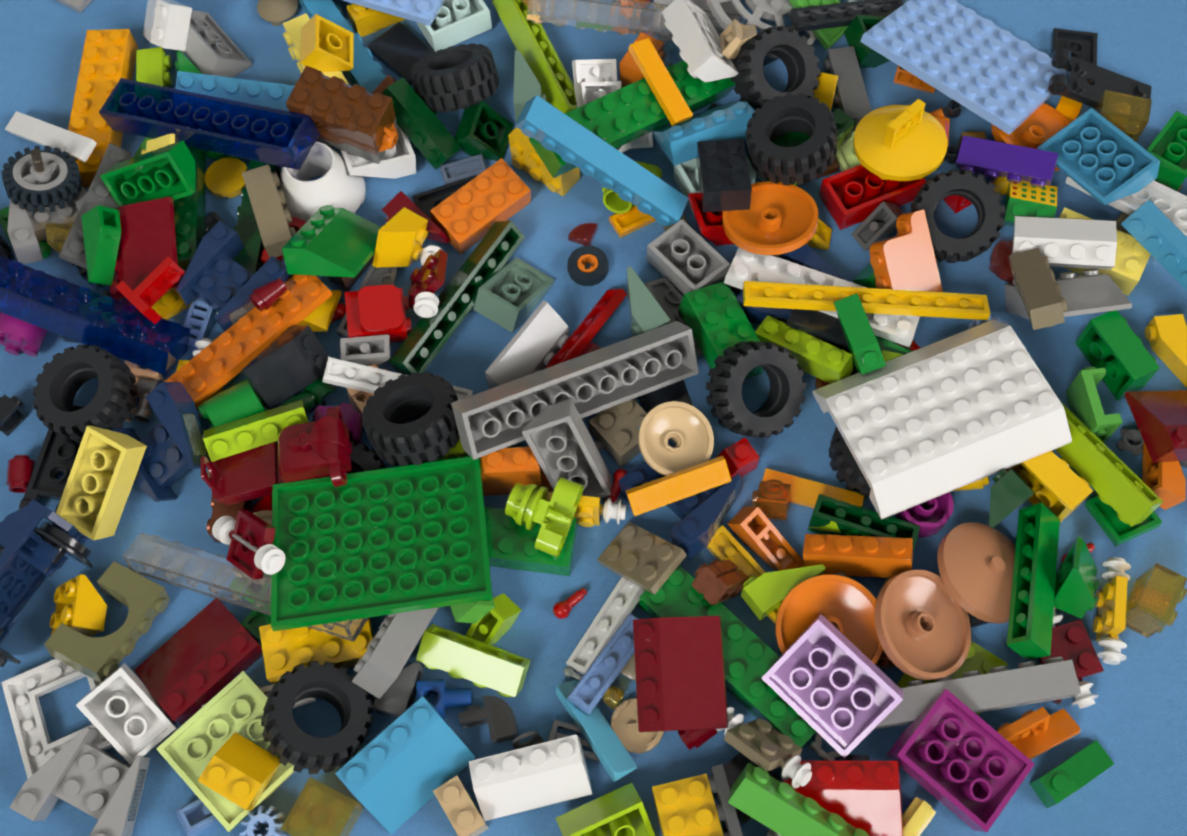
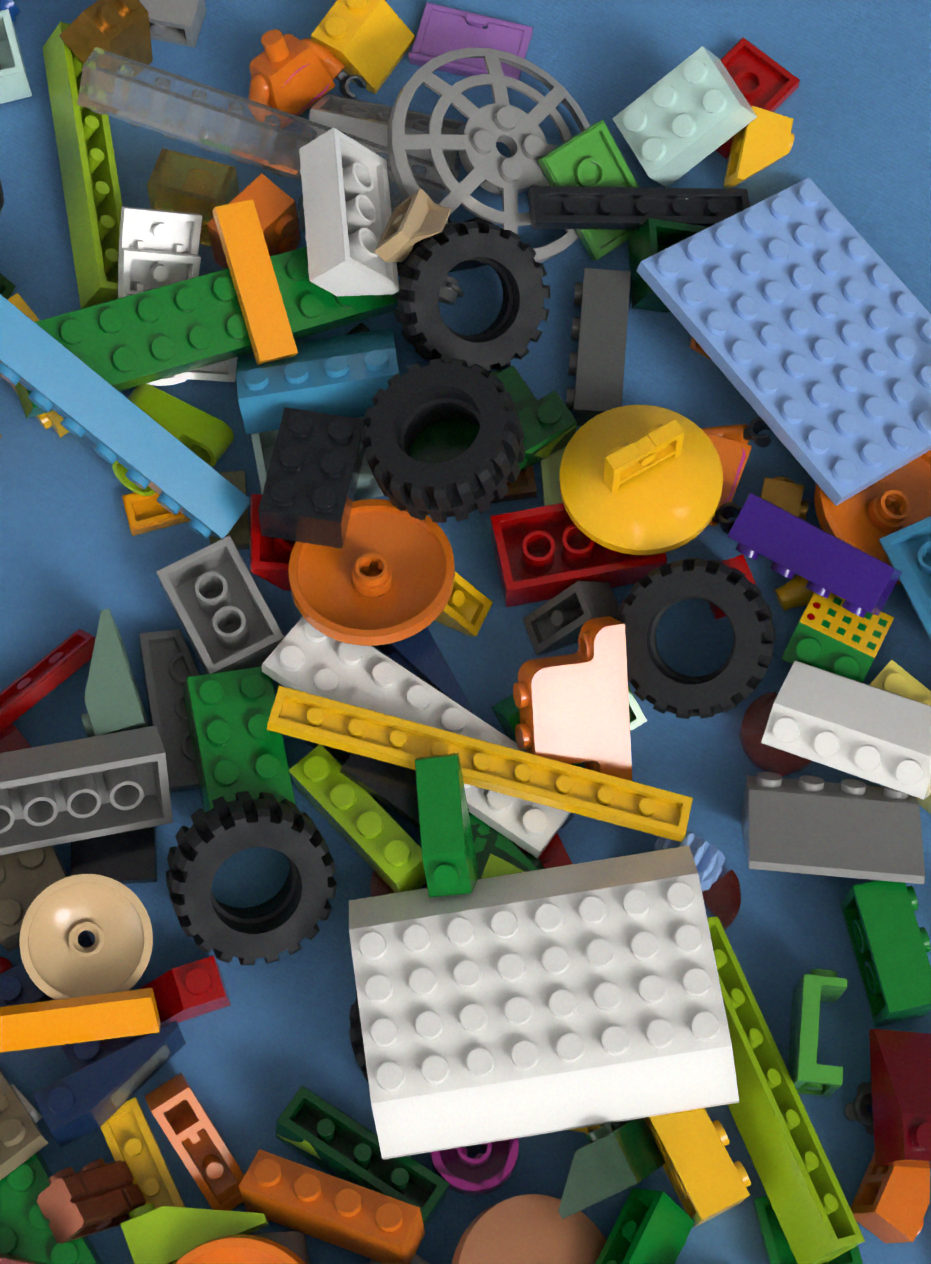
camera: 10 degrees right, 5 degrees up
(525, 84) = (39, 249): sand green slope -> none
(583, 234) = (71, 516): clear red tile -> none
(585, 255) = (58, 557): black bush -> none
(603, 46) = (191, 186): none -> clear yellow brick
(773, 499) = (229, 1074): clear orange brick -> none
(806, 491) = (294, 1067): light orange tile -> none
(826, 88) = (550, 354): yellow slope -> none
(1038, 288) = (768, 814): dark tan brick -> none

